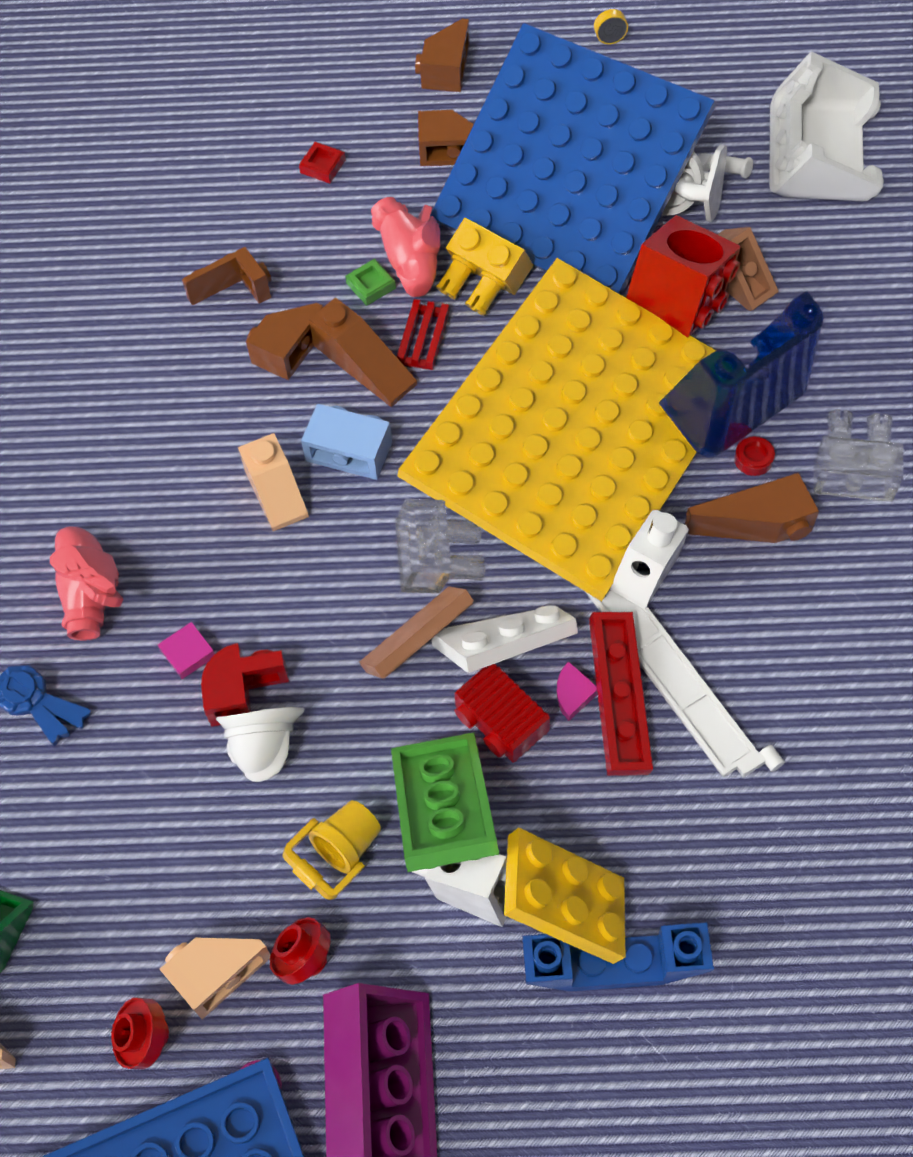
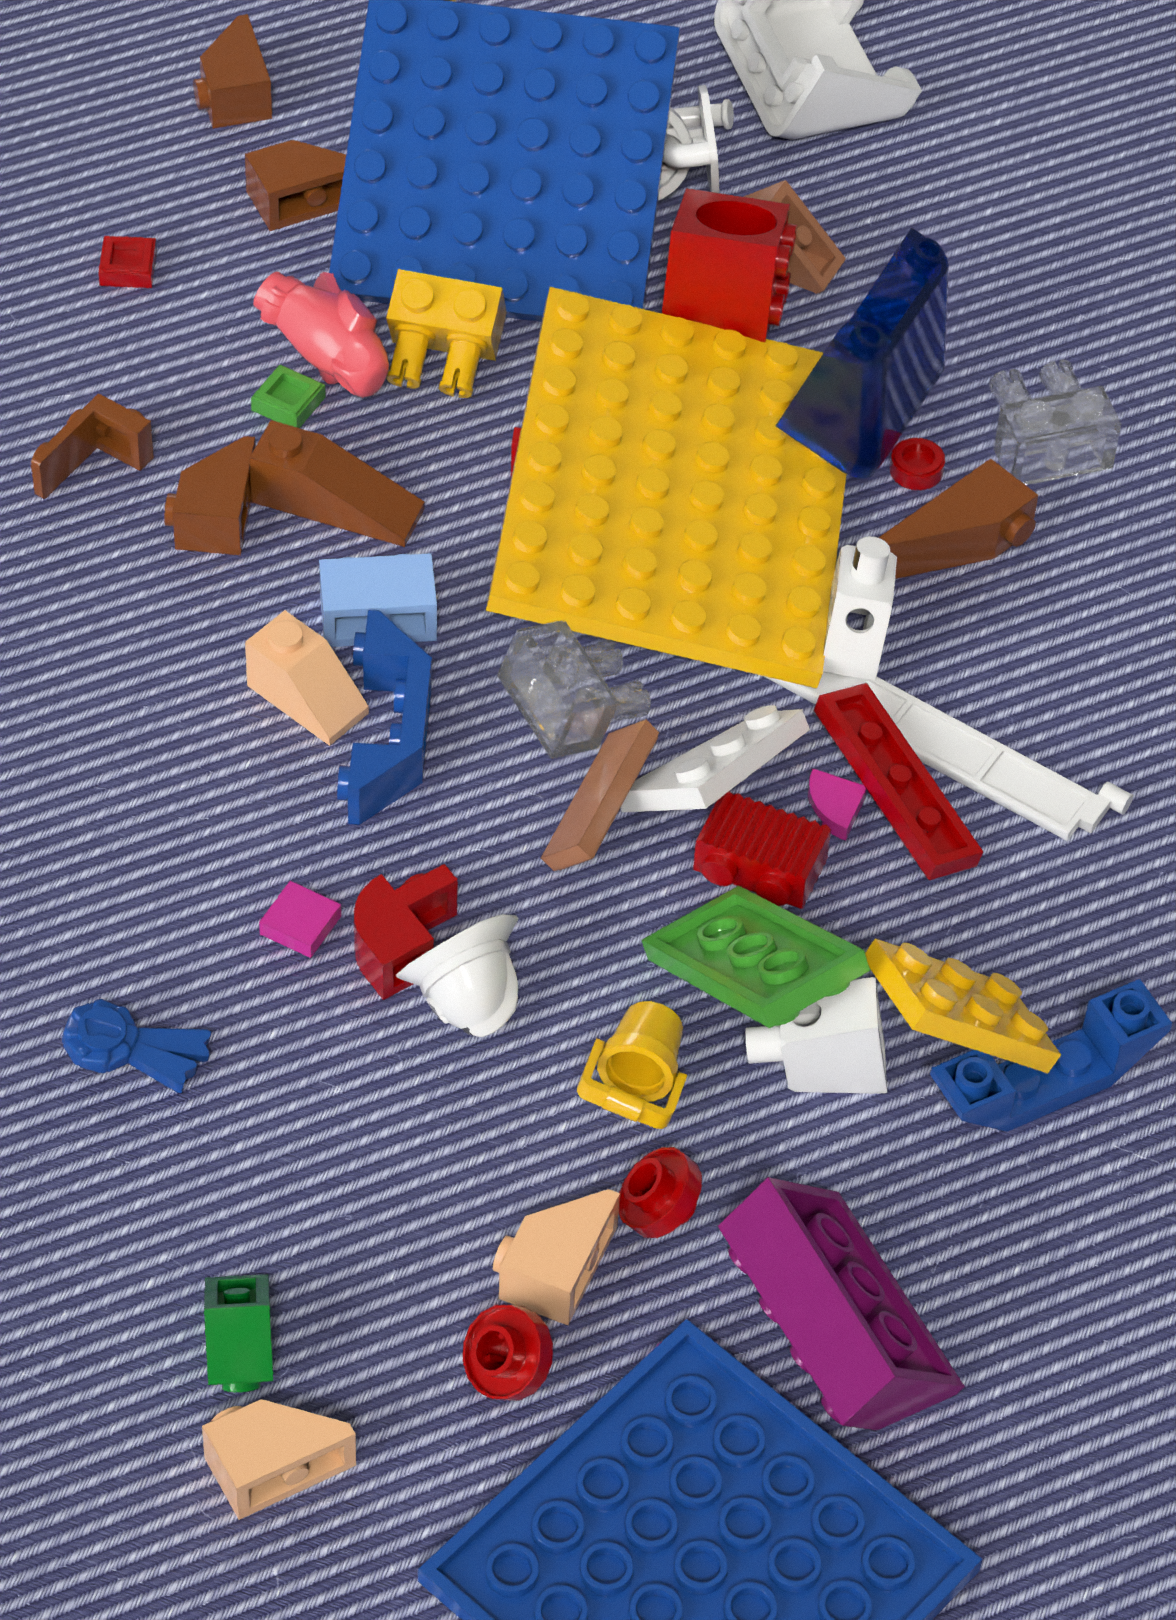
camera: 30 degrees left, 10 degrees down
(84, 581) = (118, 876): coral animal -> none
(282, 567) = (380, 771): none -> blue slope
(428, 311) = (396, 412): red tile -> none

